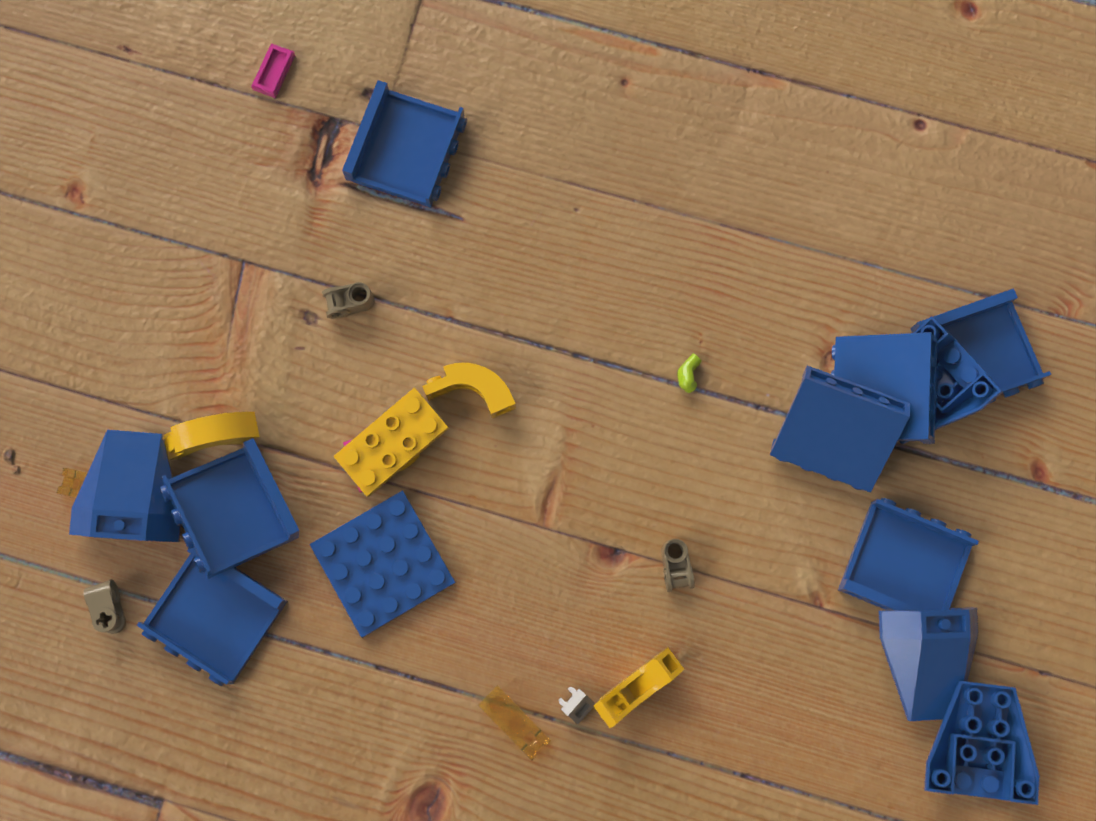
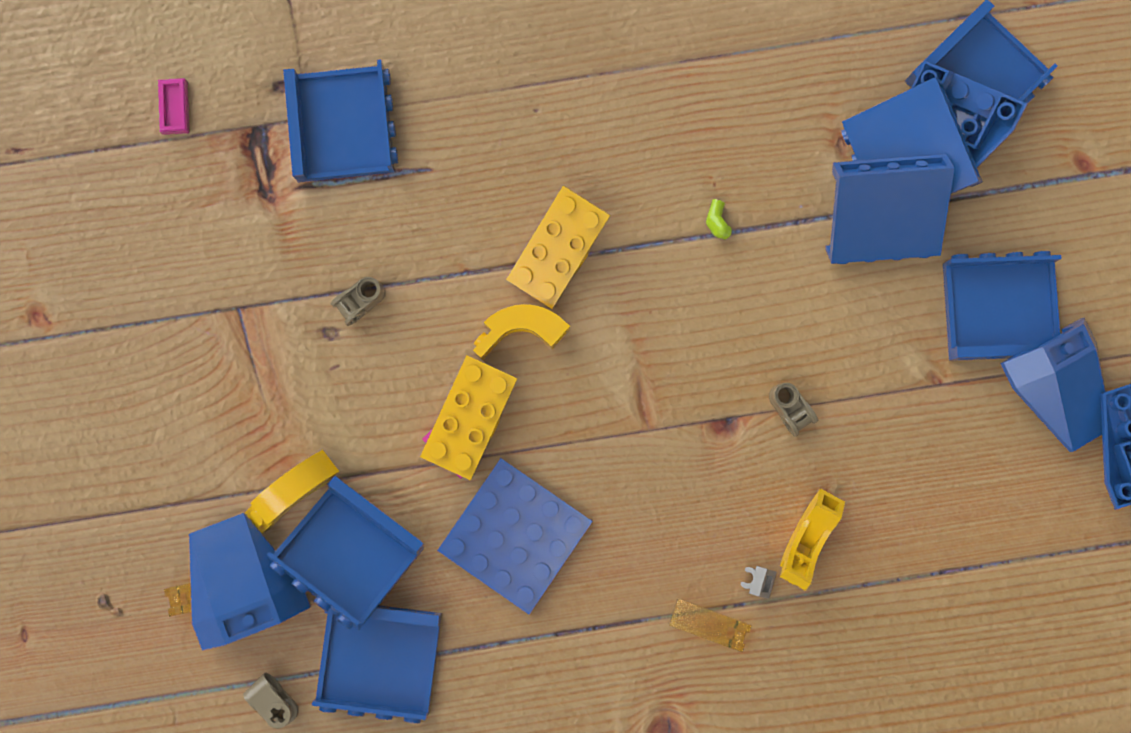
camera: 25 degrees left, 5 degrees up
(538, 332) = (558, 247): none -> yellow plate

